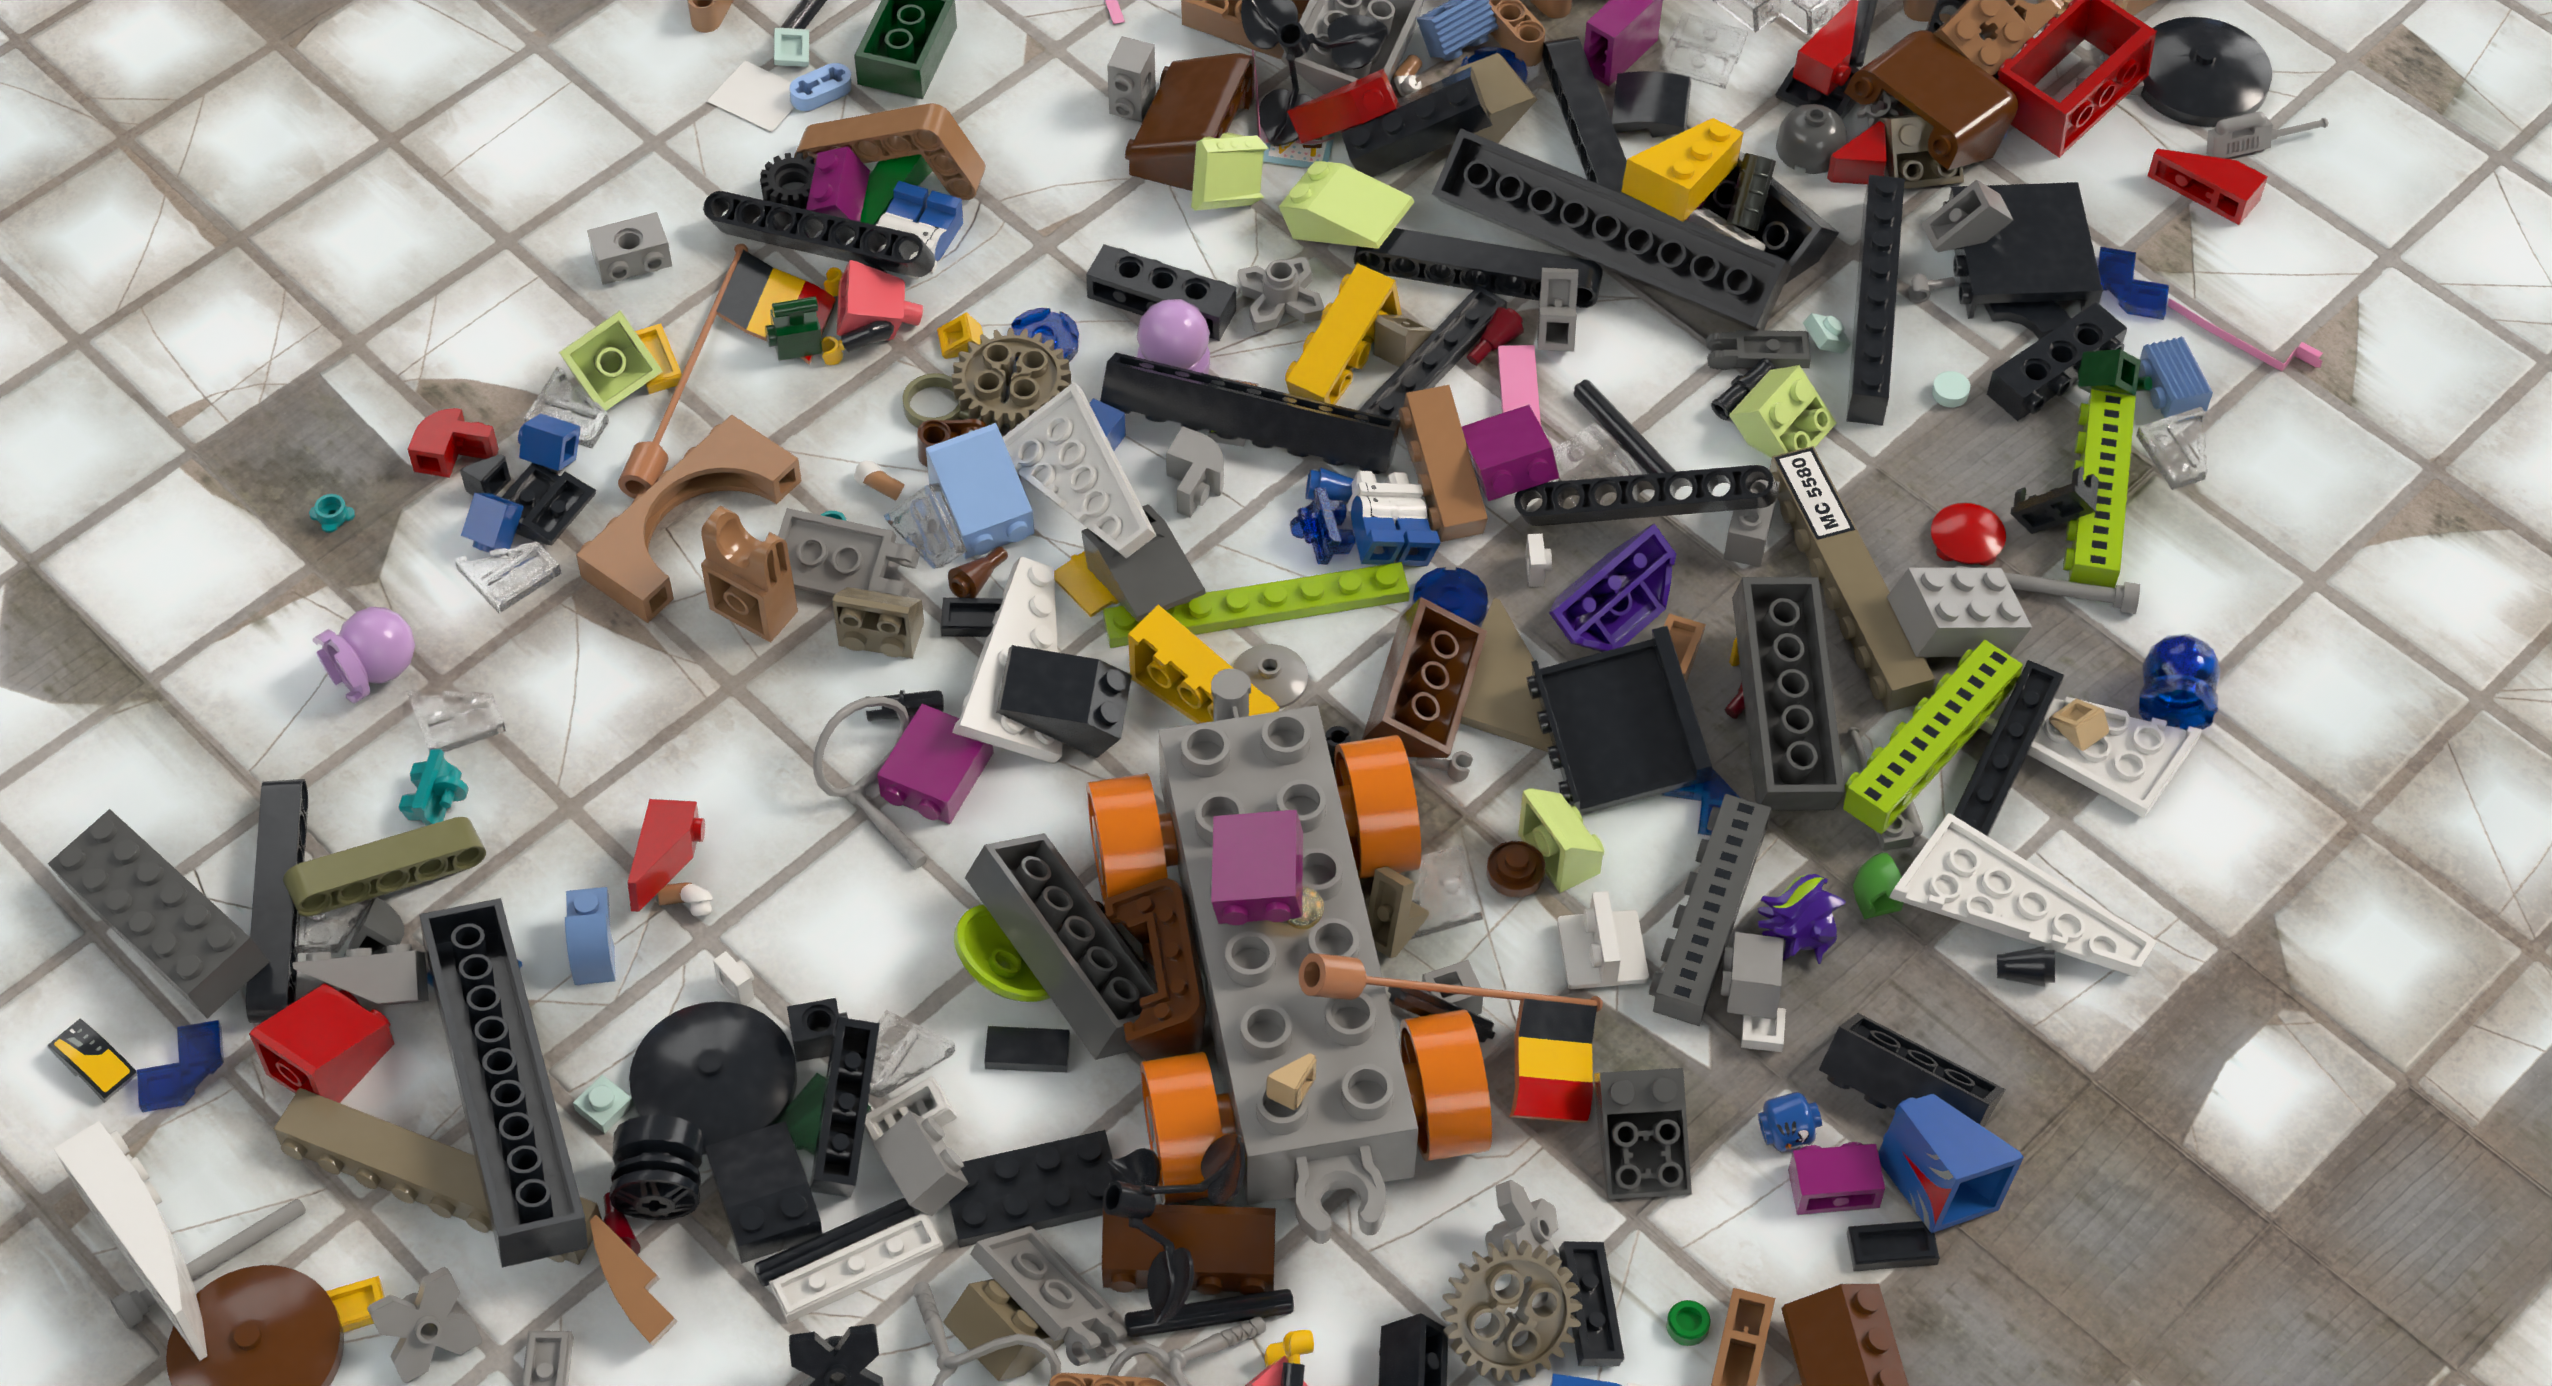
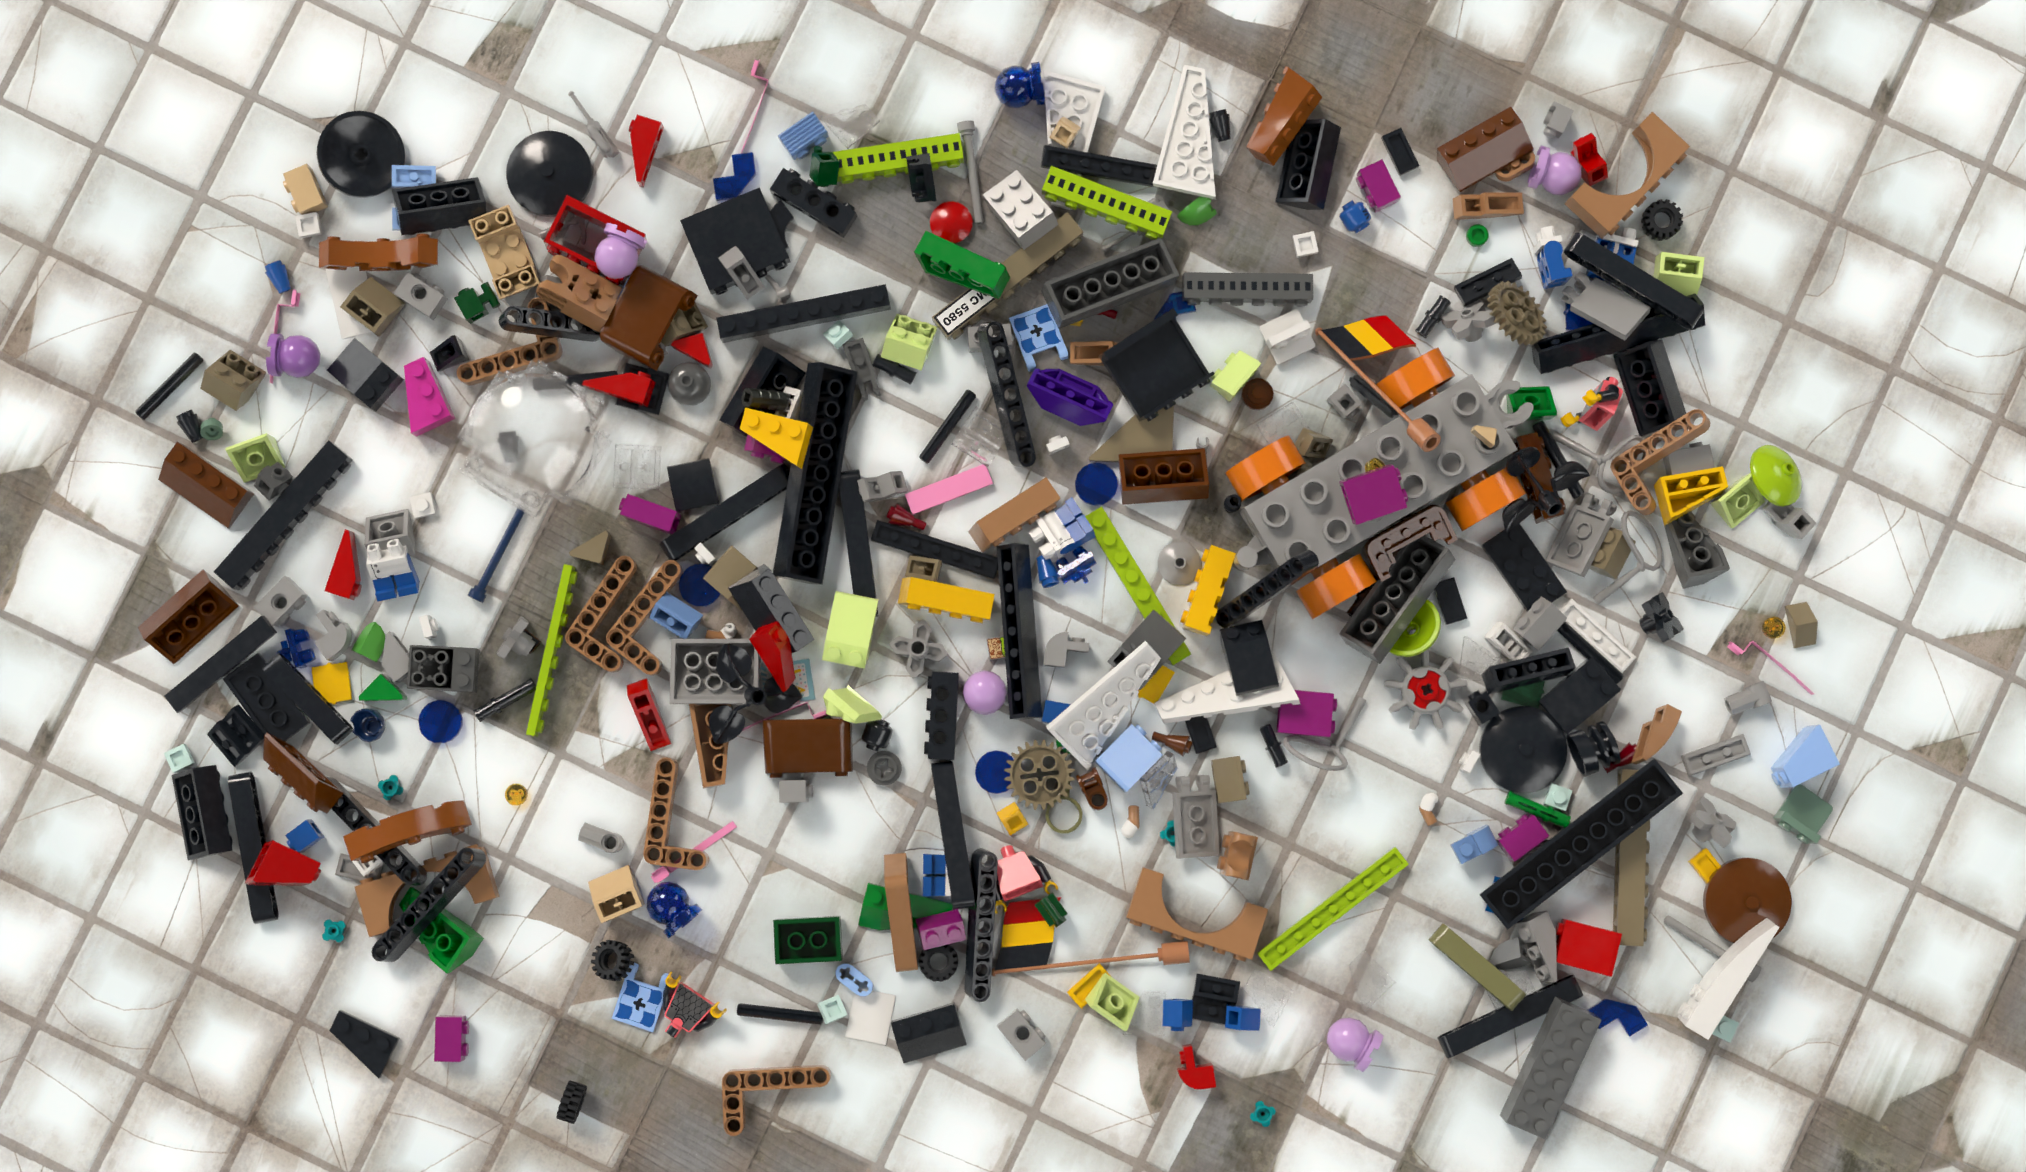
camera: 110 degrees left, 30 degrees up
(62, 1231) = (1726, 1029): none -> light aqua plate
(92, 1059) = (1632, 1062): slope -> none
(437, 787) = (1416, 965): teal hips -> none
(486, 475) = (1212, 1037): black slope -> none
(562, 1015) = (1521, 837): none -> magenta brick
(584, 1070) = (1561, 820): none -> green pin
(596, 706) = (1332, 908): none -> lime plate
(663, 847) = (1408, 830): red slope -> none
(697, 143) = (928, 1032): none -> black slope
(888, 953) = (1437, 684): none -> light grey gear
(974, 235) = (953, 835): none -> black beam
(1114, 195) = (879, 759): none -> dark grey gear
(1165, 706) = (1267, 588): none -> black beam
(1170, 204) = (877, 734): none -> black head
(1333, 1296) = (1540, 397): none -> green slope
(1510, 452) = (1002, 477): magenta brick -> none
(1541, 83) = (704, 555): none -> white plate
(1557, 1190) = (1433, 316): none -> black pin
(1643, 1132) = (1384, 285): dark grey slope -> none
(1719, 587) = (1036, 333): none -> light blue flag
(1753, 975) = (1283, 254): light grey brick -> none
(1802, 916) = (1239, 240): dark purple hair -> none
(1888, 496) = (961, 266): none -> green wedge
(1946, 1162) = (1360, 134): blue slope -> none
(1951, 389) = (850, 257): light aqua tile -> none
(2015, 1057) = (1283, 117): none -> dark orange wedge
(2044, 54) = (618, 253): none -> lavender tile

